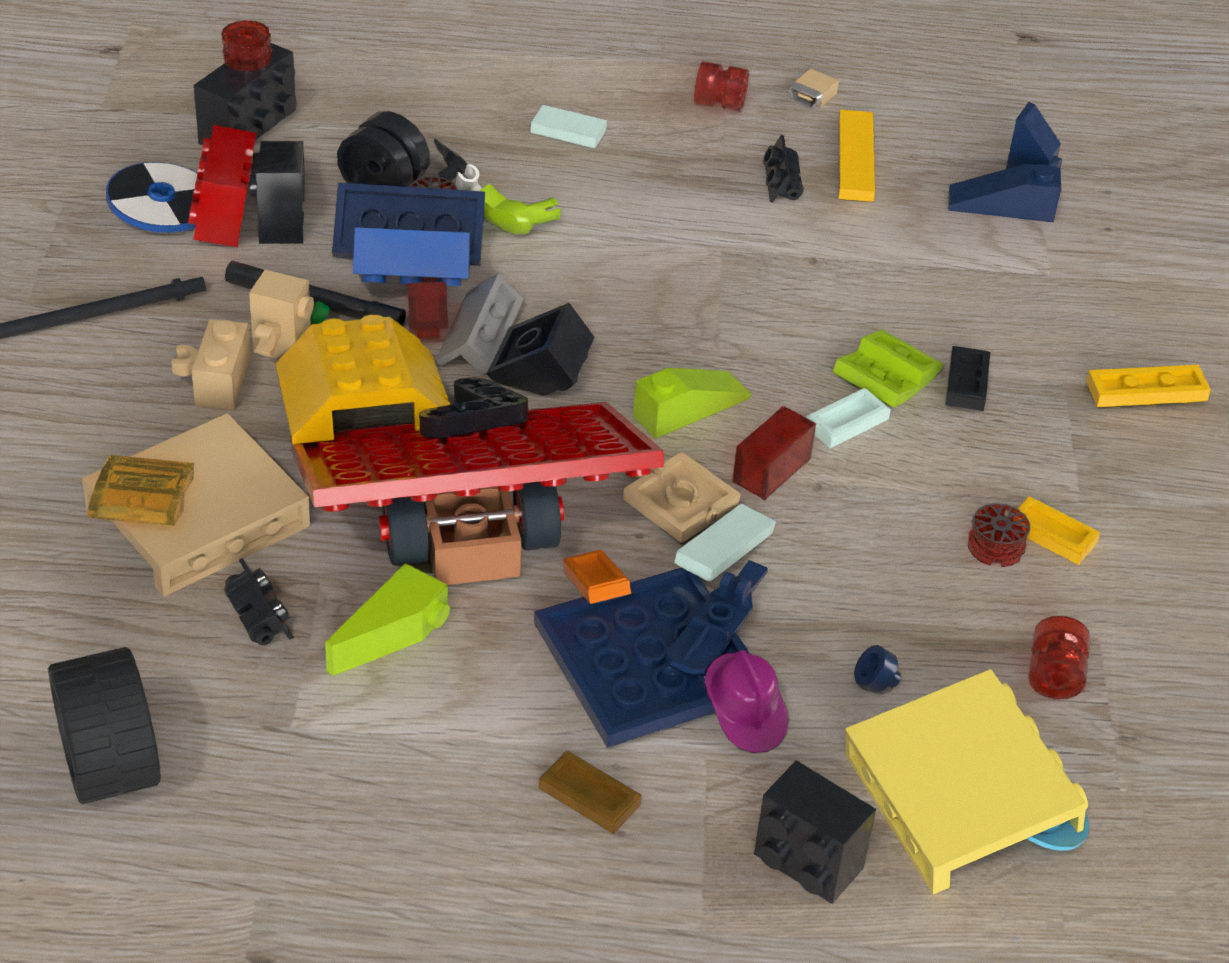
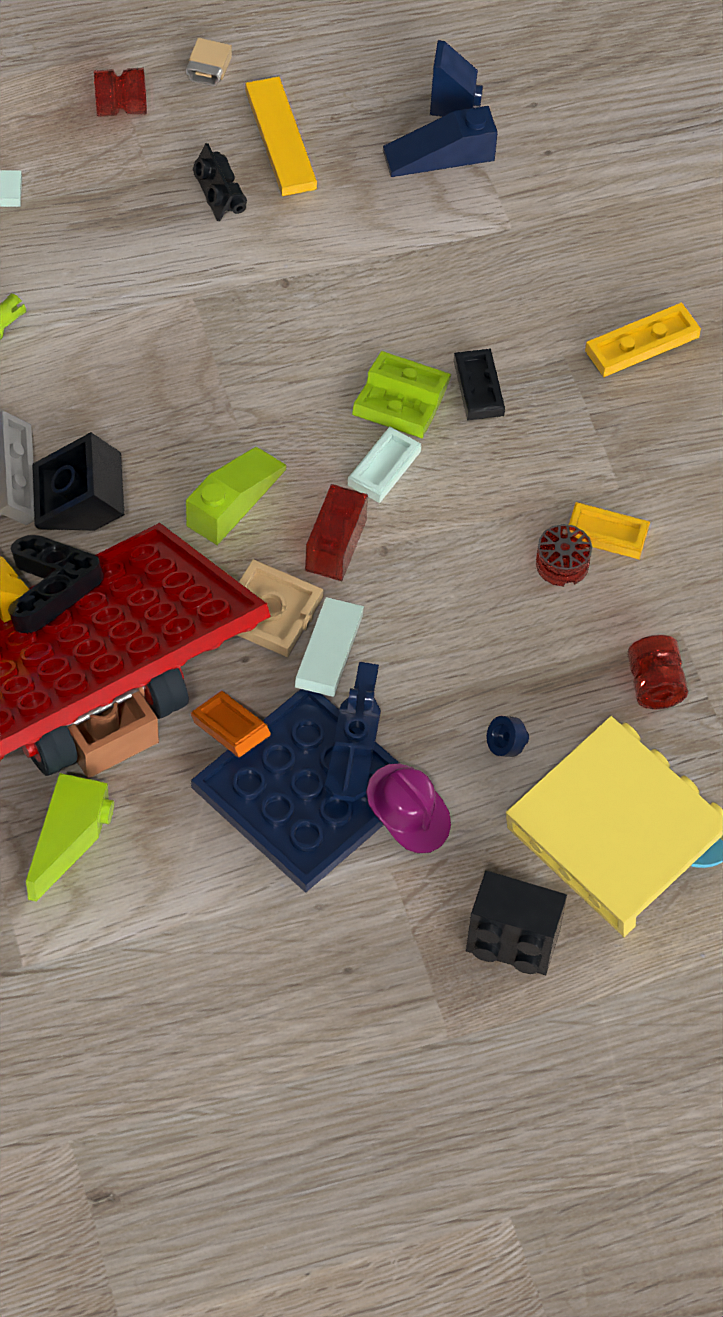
camera: 20 degrees left, 15 degrees up
(590, 791) = (308, 941): pearl gold tile -> none

